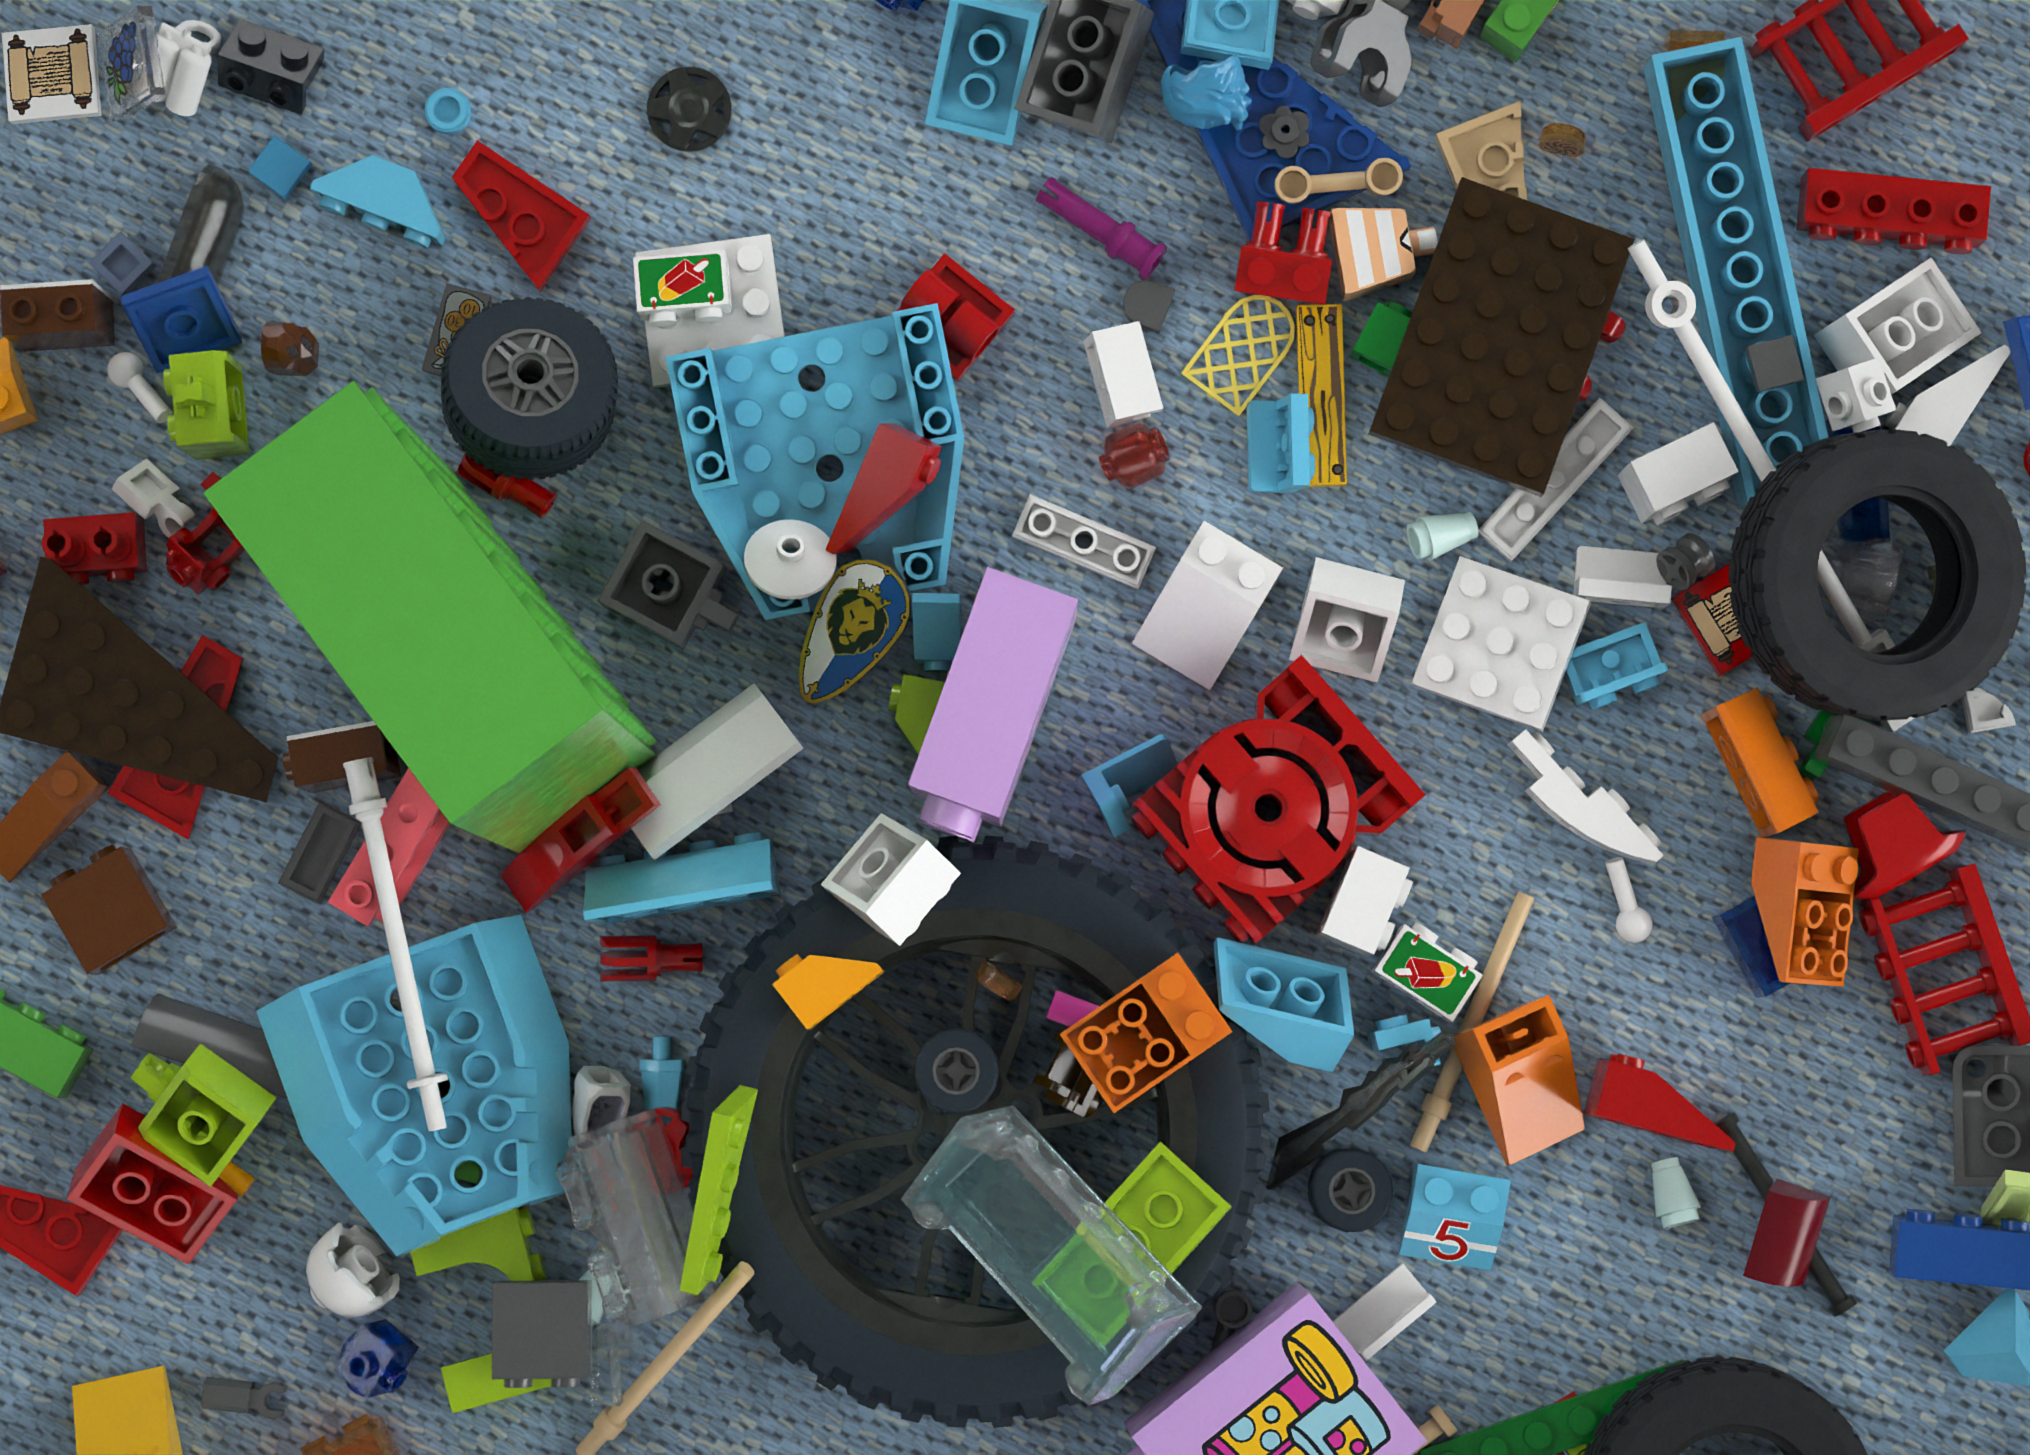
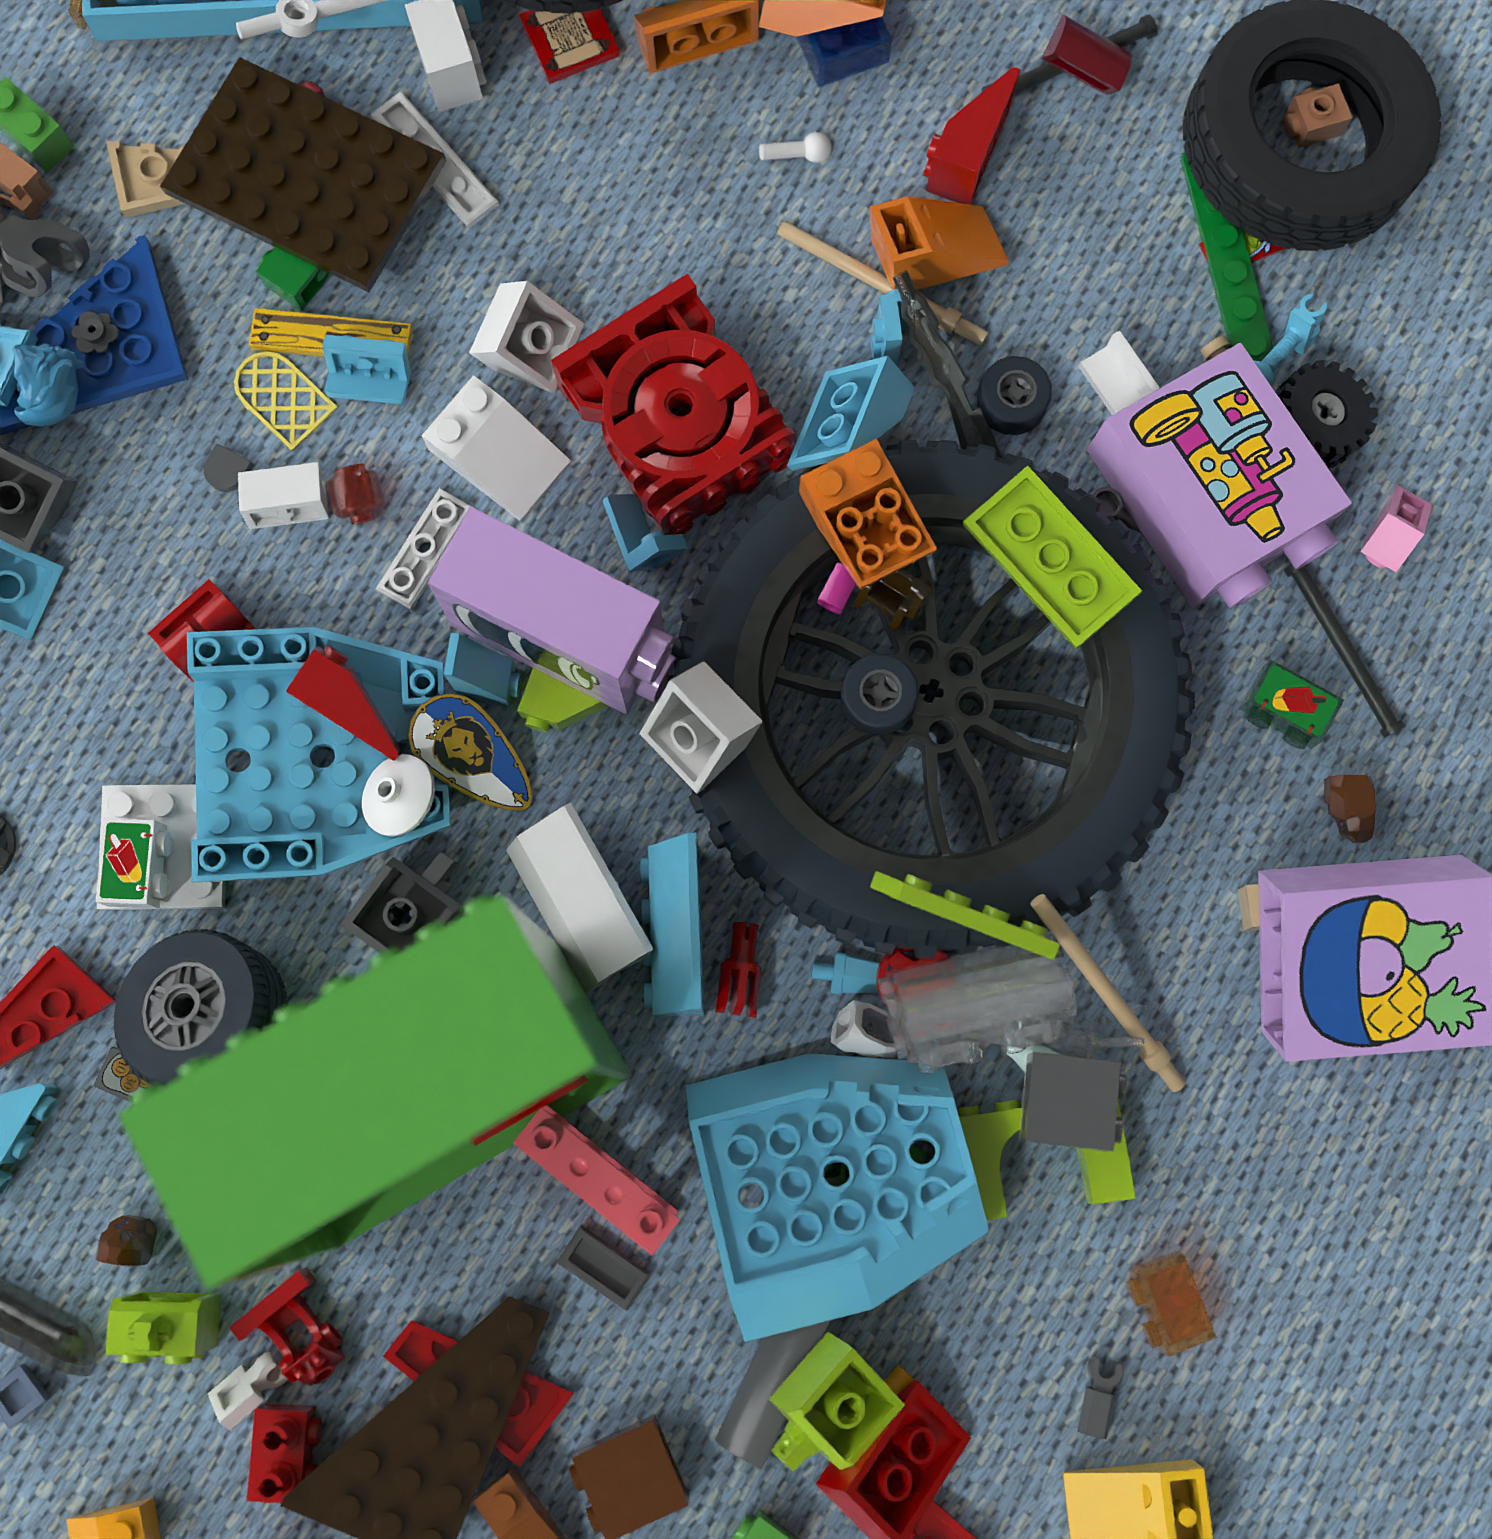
camera: 85 degrees left, 5 degrees down
(57, 315) = (50, 1465): reddish brown piece -> none
(127, 372) = (122, 1403): white bar -> none
(181, 317) = (72, 1343): blue tile -> none
(318, 756) = (517, 1233): reddish brown piece -> none
(341, 1272) = (1005, 1282): white cylinder -> none
(368, 809) = (571, 1203): white bar -> none
(376, 1359) = (1078, 1265): clear blue brick -> none
(578, 837) = (624, 1018): red slope -> none
(822, 984) = (789, 799): light orange slope -> none
(998, 981) = (803, 649): clear orange tile -> none
(1052, 1249) = (1052, 620): windscreen -> none
(1120, 239) = (163, 483): magenta pin -> none
(1280, 274) = (218, 349): red brick -> none
(1364, 902) = (774, 345): white brick -> none
(1376, 248) = (210, 273): light nougat torso -> none
(1380, 179) = (150, 258): tan bar -> none
(1427, 971) = (836, 309): brick -> none
(1440, 534) = (466, 257): light aqua cone -> none
(1454, 1216) = (1044, 314): medium azure slope -> none
(1501, 643) = (566, 215): white plate -> none
(1562, 140) = (146, 113): clear orange tile -> none
(1595, 818) = (722, 163): white slope -> none
(1613, 665) = (597, 131): medium azure bracket -> none
(1620, 577) = (526, 117): white panel -> none
(1673, 1194) = (1045, 142): light aqua cone -> none
(1685, 561) = (520, 62): dark grey wheel -> none

